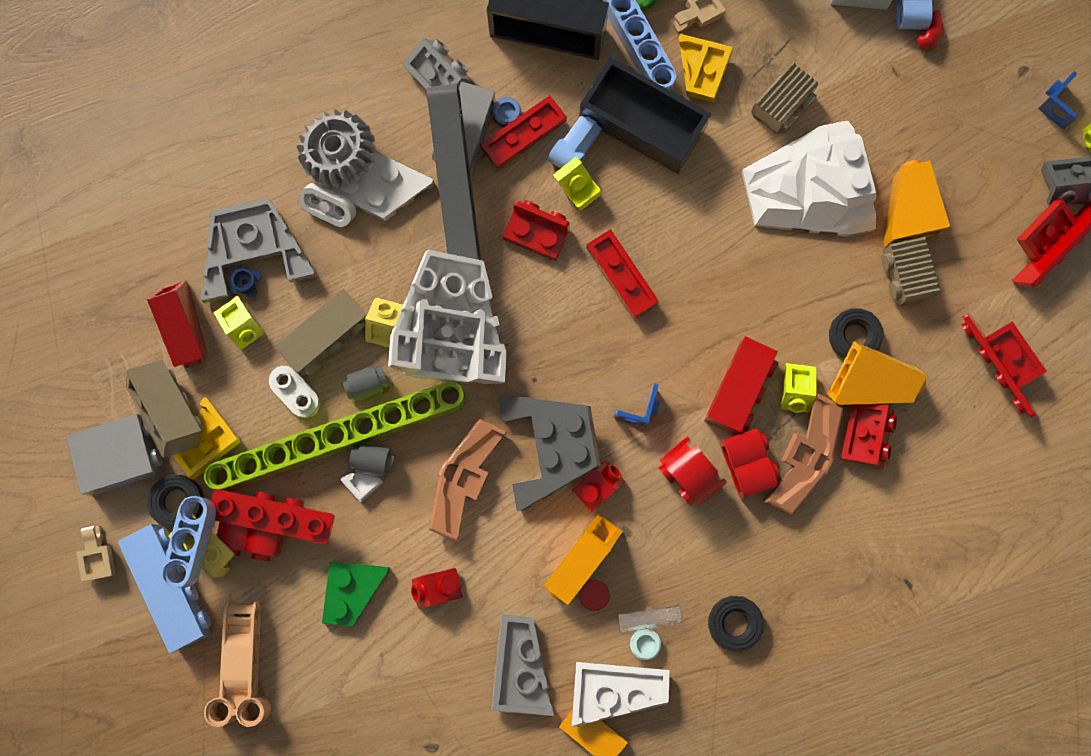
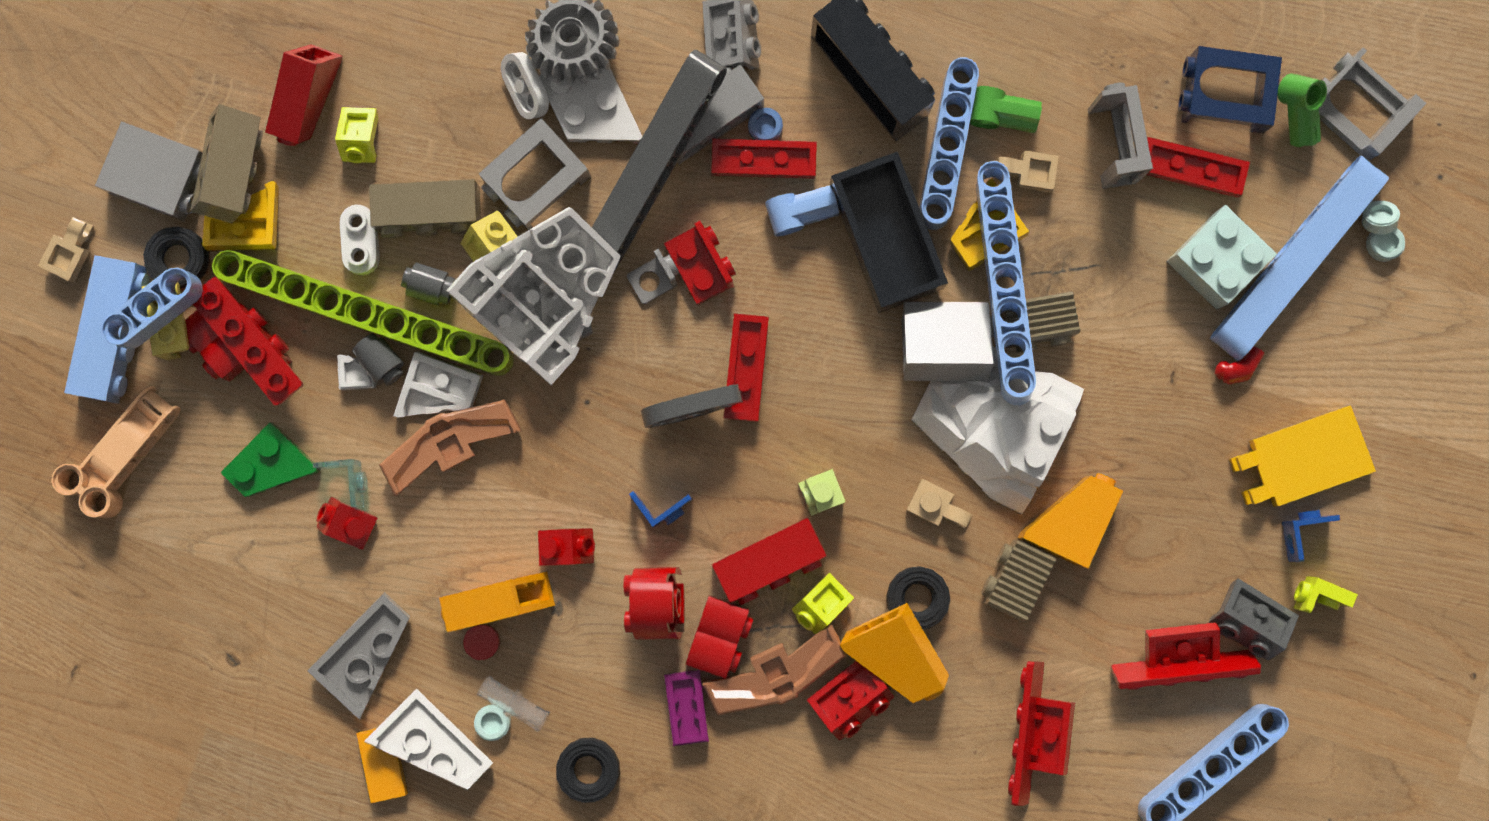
camera: 40 degrees right, 5 degrees up
(240, 274) = (386, 93): dark blue plate -> none
(248, 235) = (430, 57): light grey wing -> none
(394, 284) = (529, 210): none -> light grey panel
(421, 550) = (357, 480): none -> clear light blue bracket
(426, 448) = (436, 387): none -> white wing
(518, 252) = (663, 268): none -> light grey bracket
(563, 443) = (560, 483): dark grey wing -> none
(577, 184) = (772, 249): neon yellow bracket -> none
(609, 323) = (691, 406): none -> dark grey piece
(739, 154) = (947, 341): none -> brick
(739, 314) = (821, 492): none -> yellowish green brick
(750, 98) = (1009, 266): none -> light blue beam
(767, 527) = (686, 707): none -> magenta plate
(815, 267) = (934, 504): none -> tan plate
(1020, 56) = (1306, 458): none -> yellow tile

